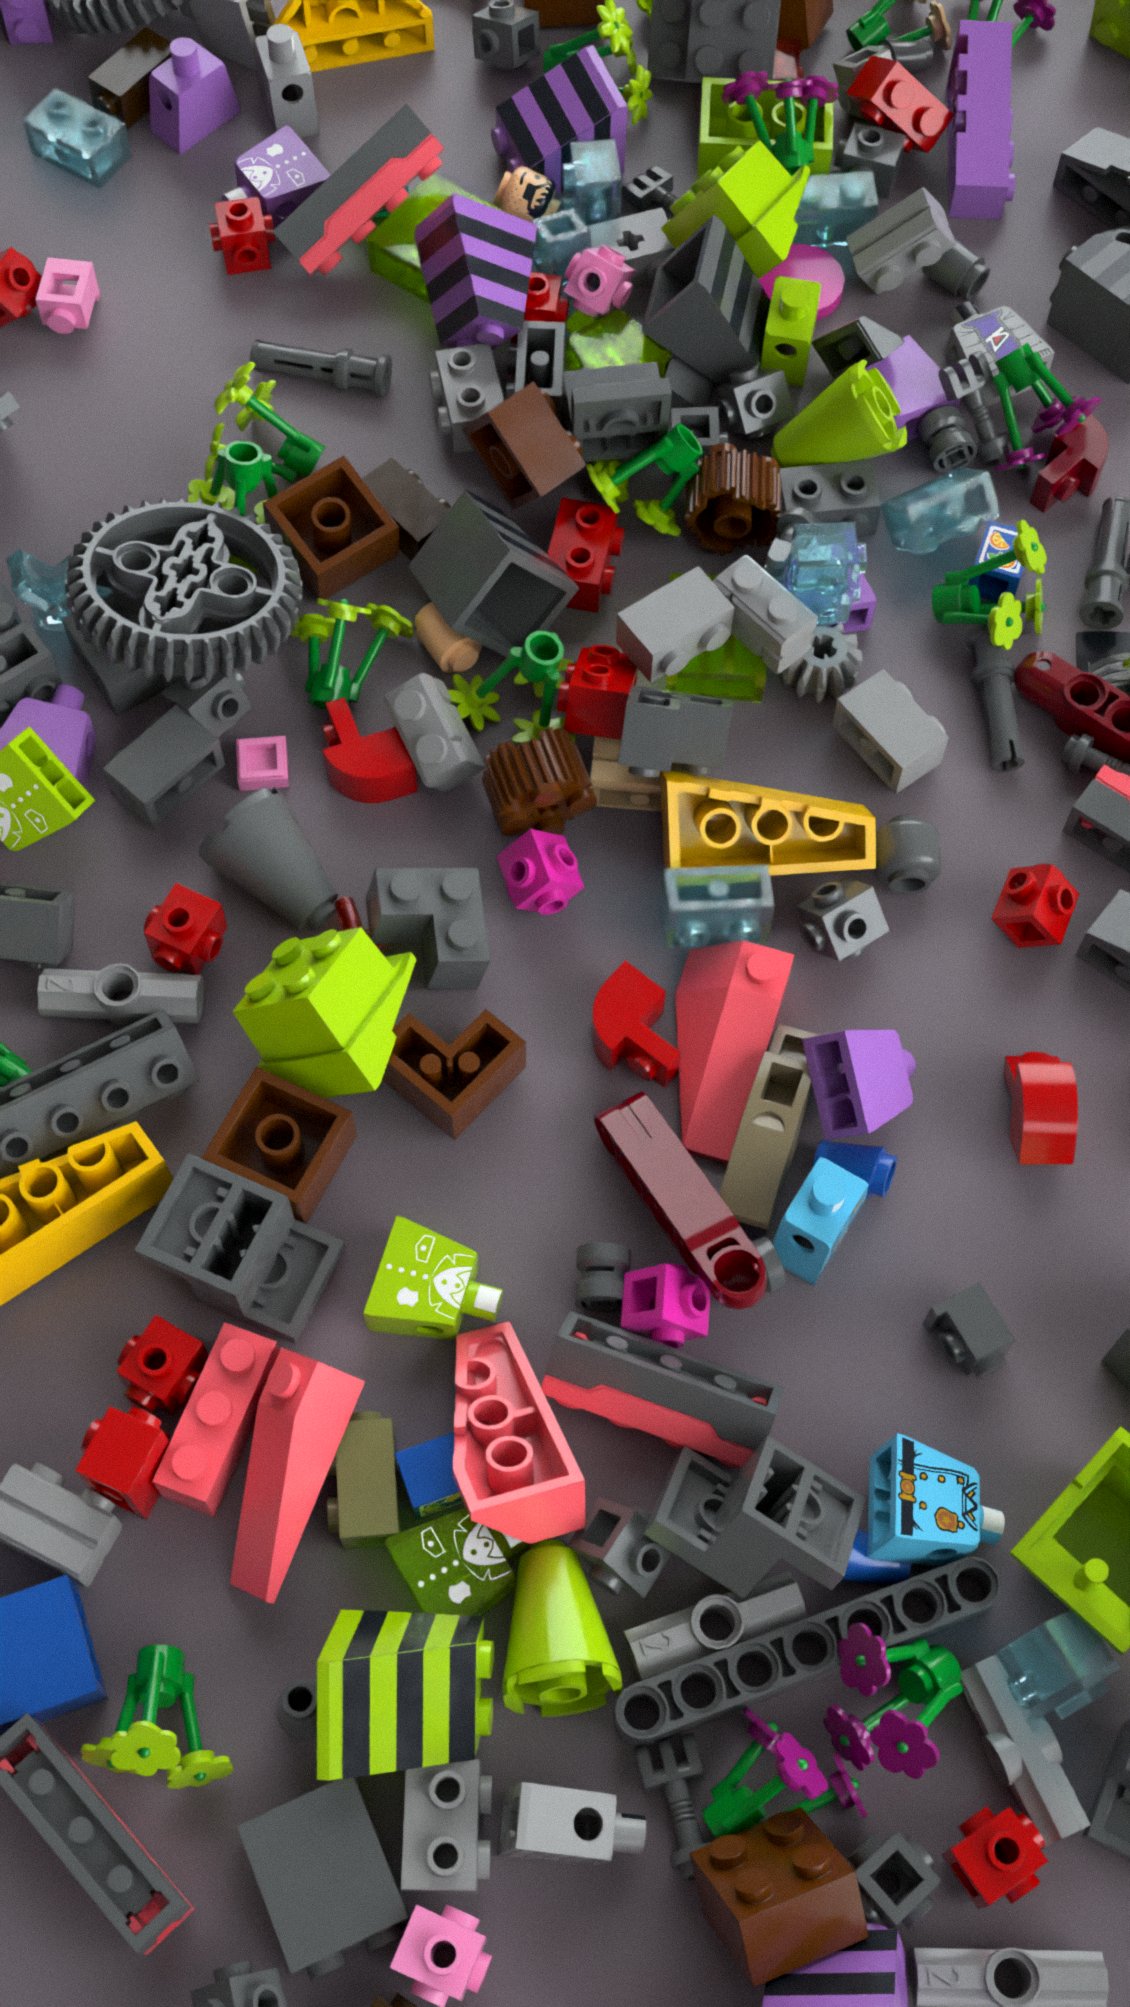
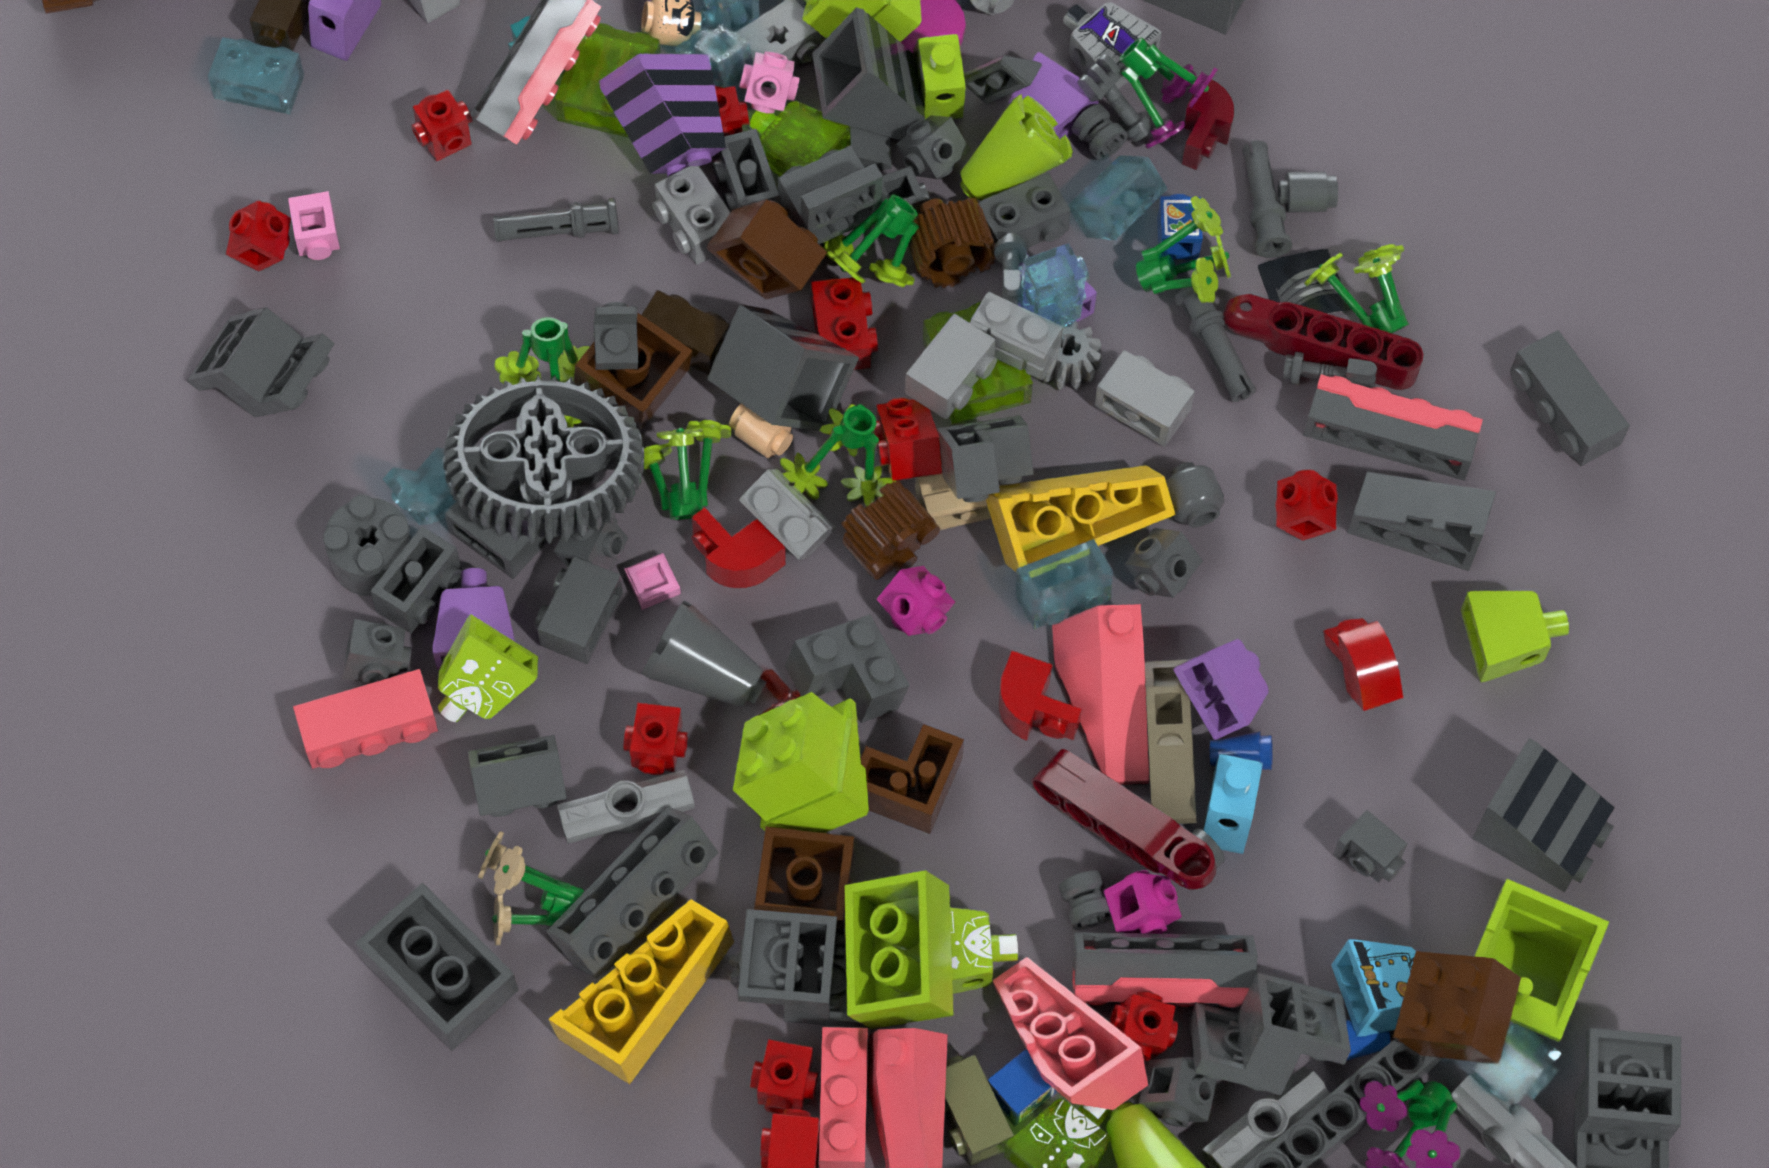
camera: 20 degrees left, 0 degrees up
(278, 172) = (454, 61): medium lavender torso -> none
(298, 450) = (571, 305): plant -> none
(316, 483) = (615, 336): none -> dark grey bracket
(345, 1261) = (898, 950): none -> lime brick
(587, 1444) = (1149, 1008): none -> red brick
(1001, 1568) = (1457, 1007): none -> reddish brown brick

